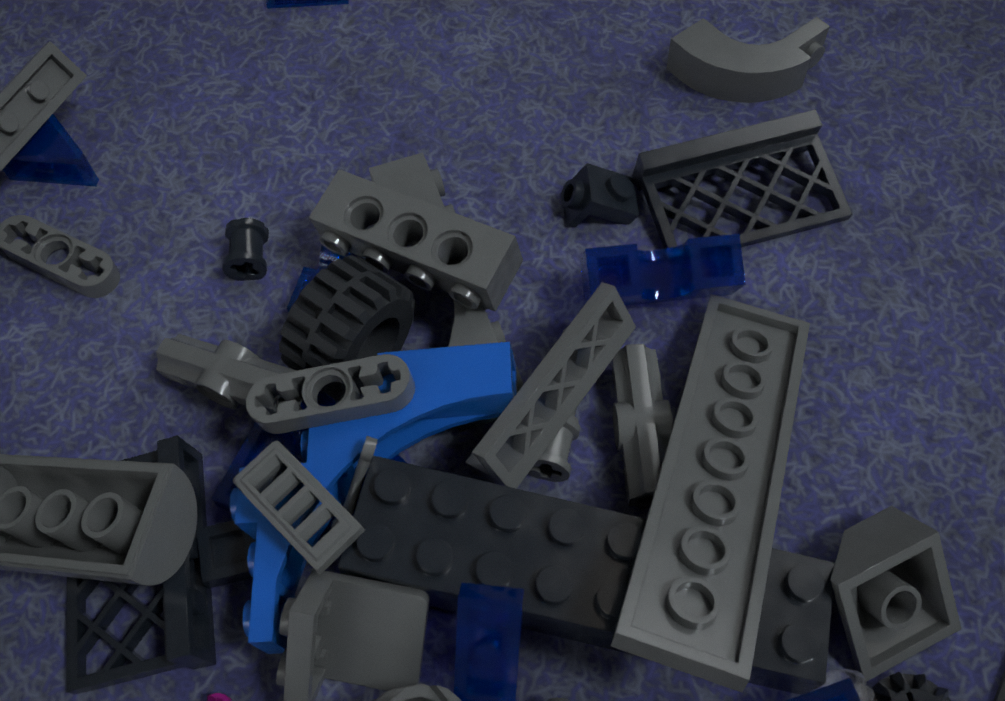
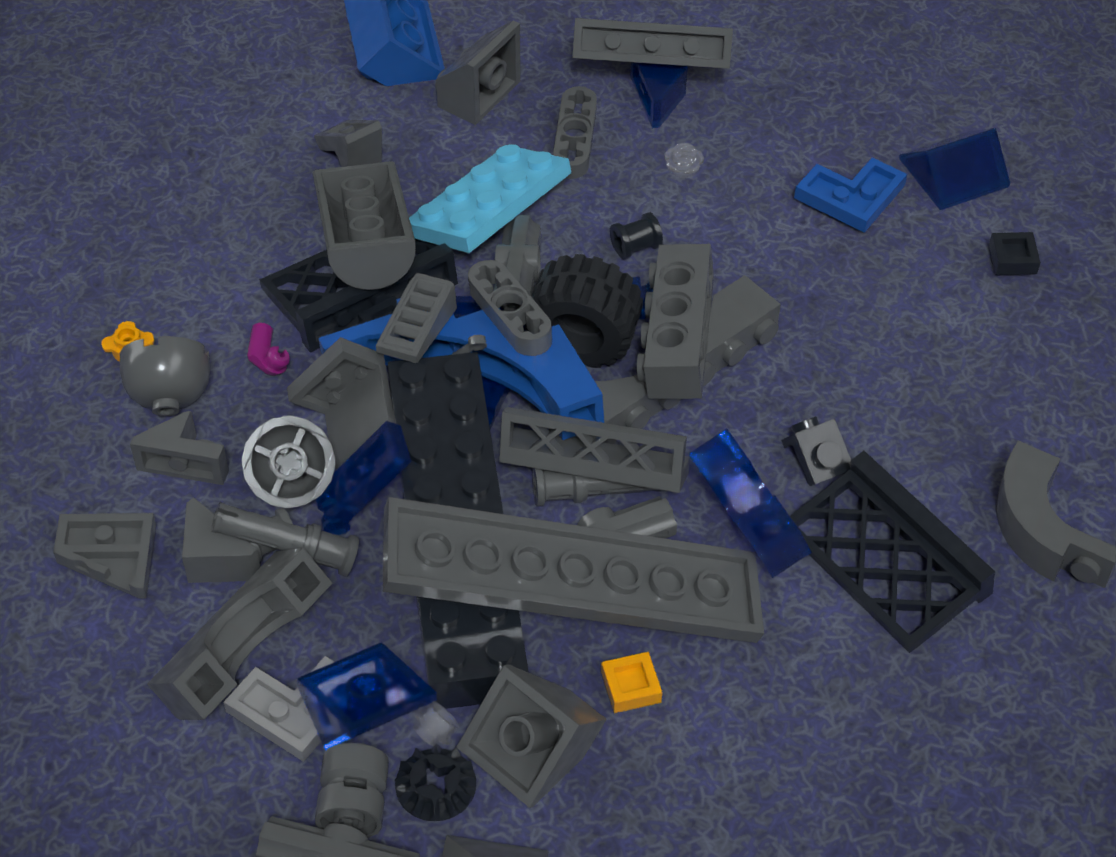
camera: 65 degrees right, 10 degrees down
(110, 372) = (488, 197): none -> medium azure plate
(164, 172) = (683, 160): none -> clear plate
(304, 53) = (852, 201): none -> blue plate
(835, 466) = (631, 682): none -> light orange plate

